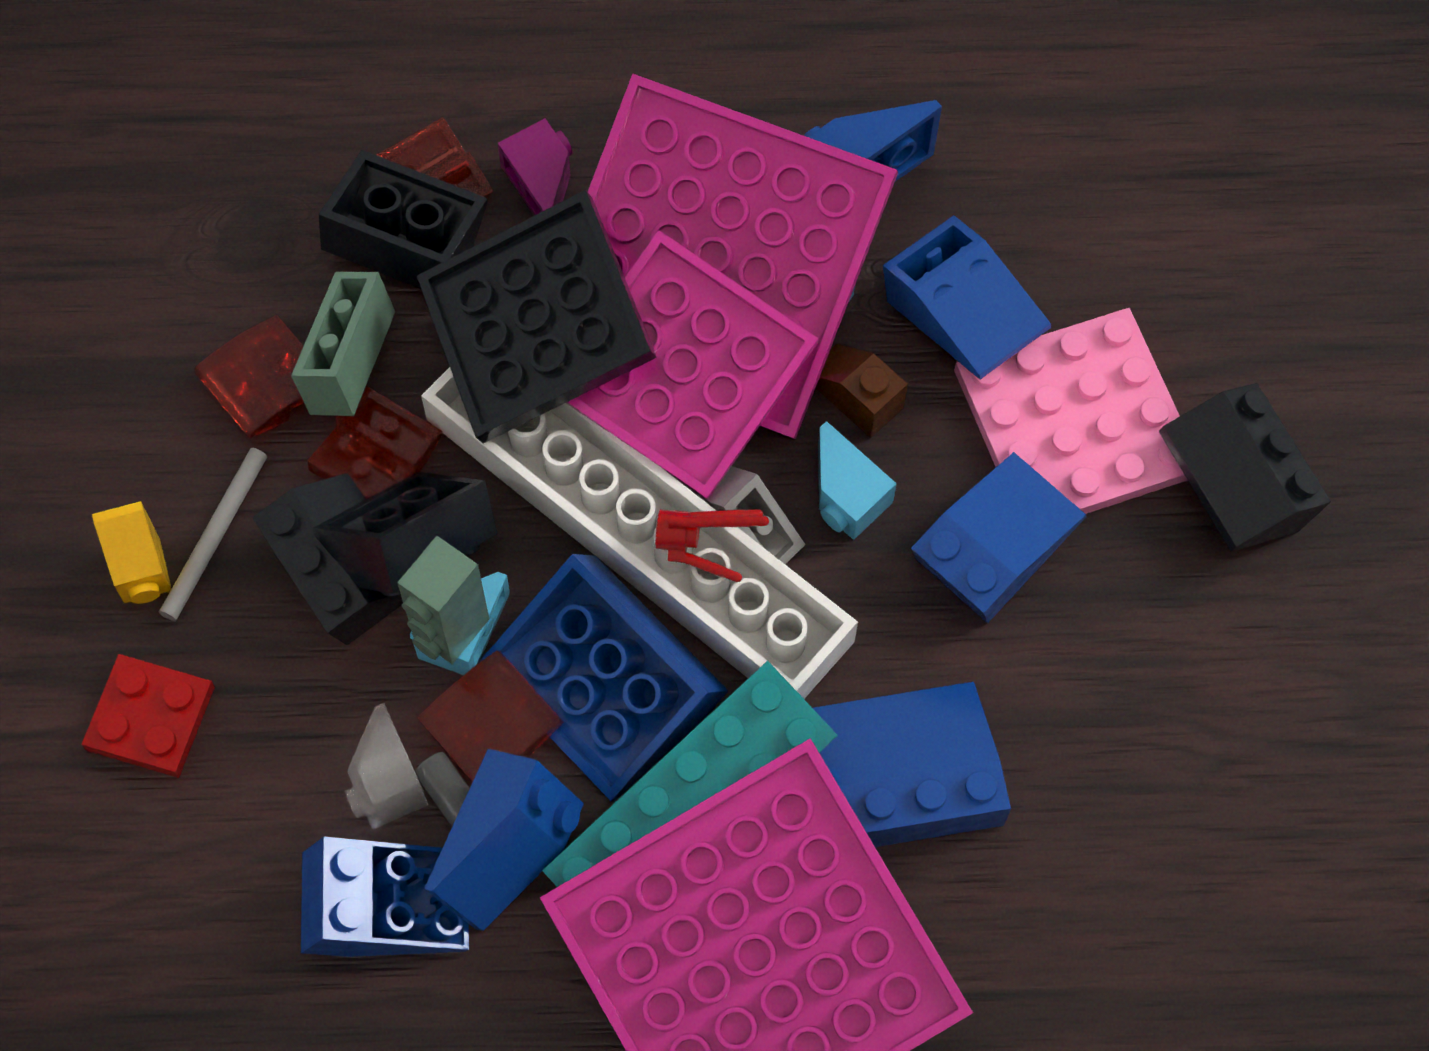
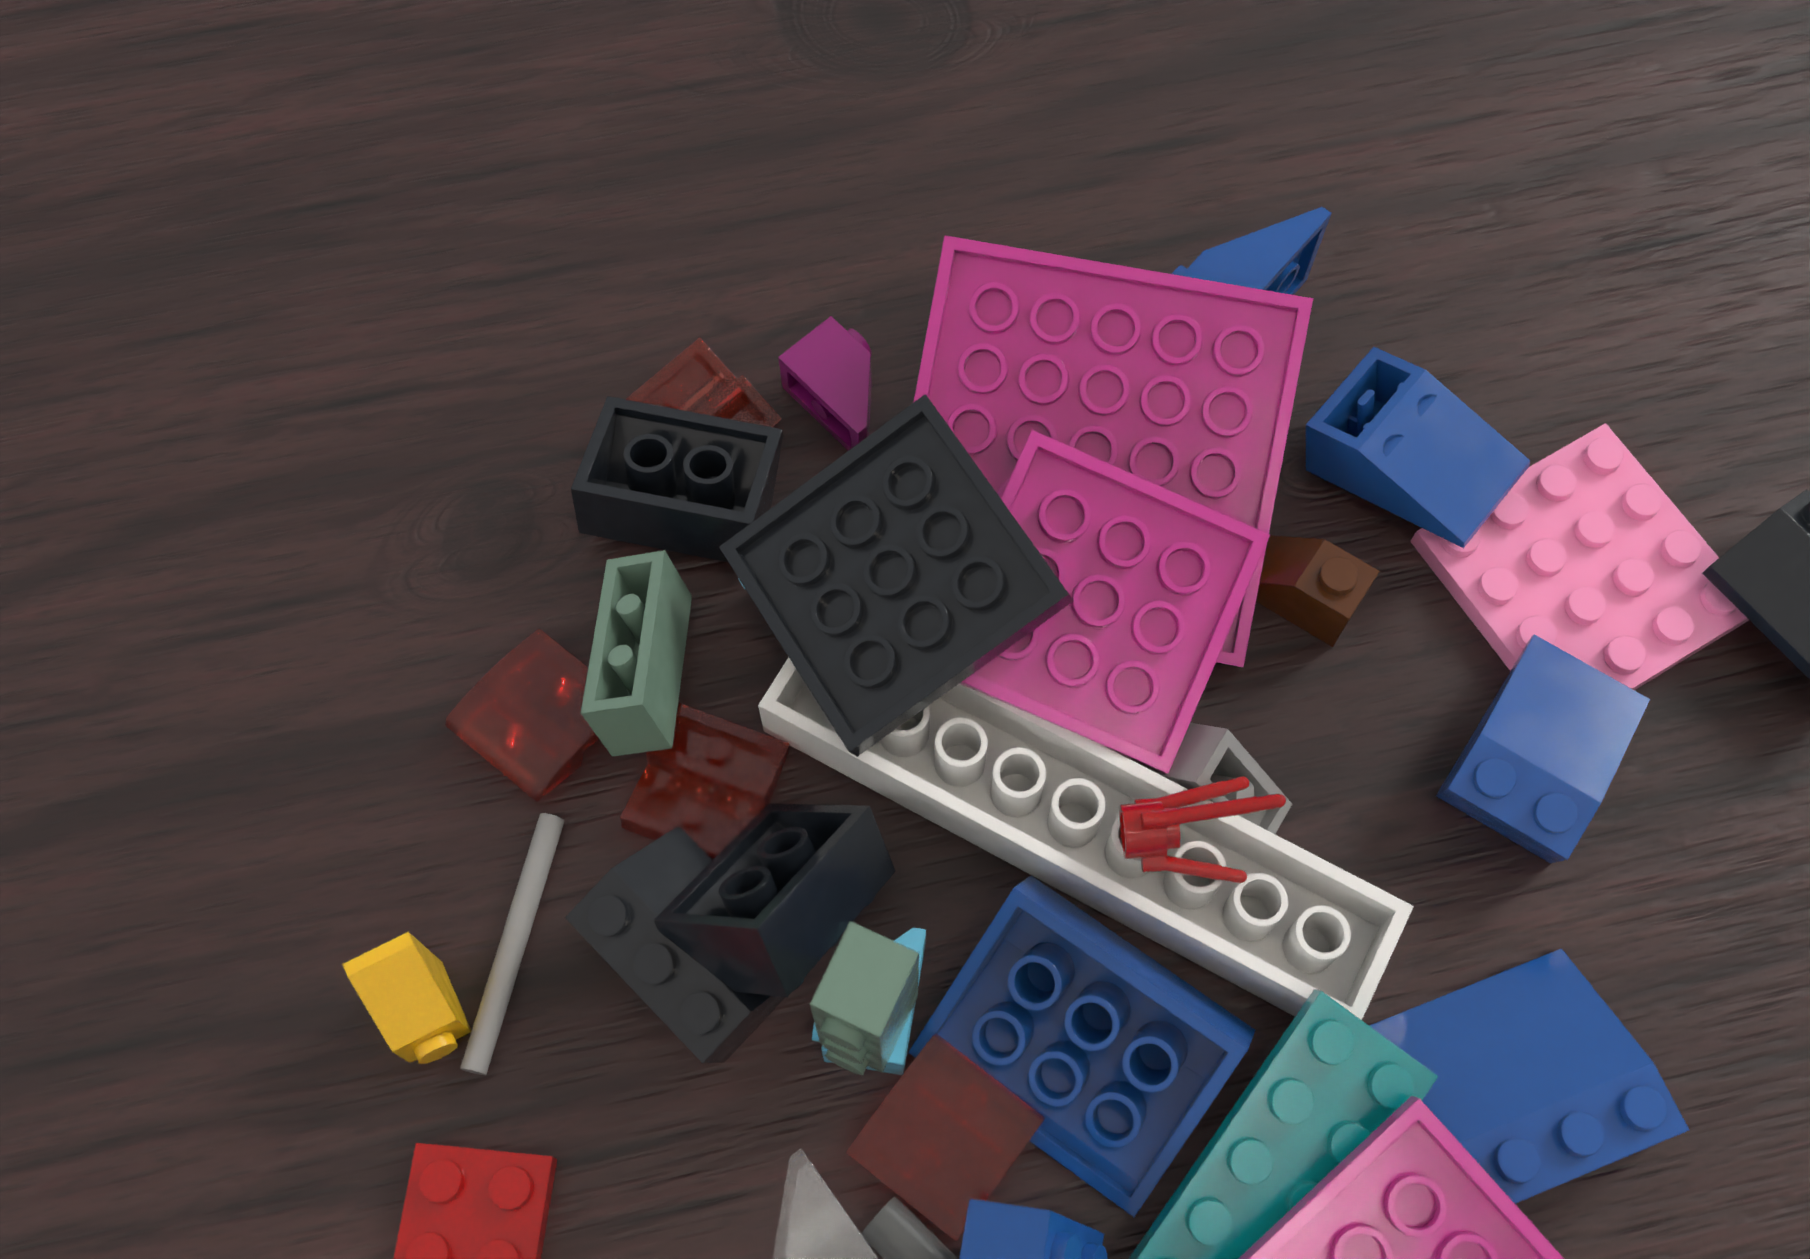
camera: 10 degrees left, 0 degrees up
(849, 484) = (1328, 713): medium azure slope -> none

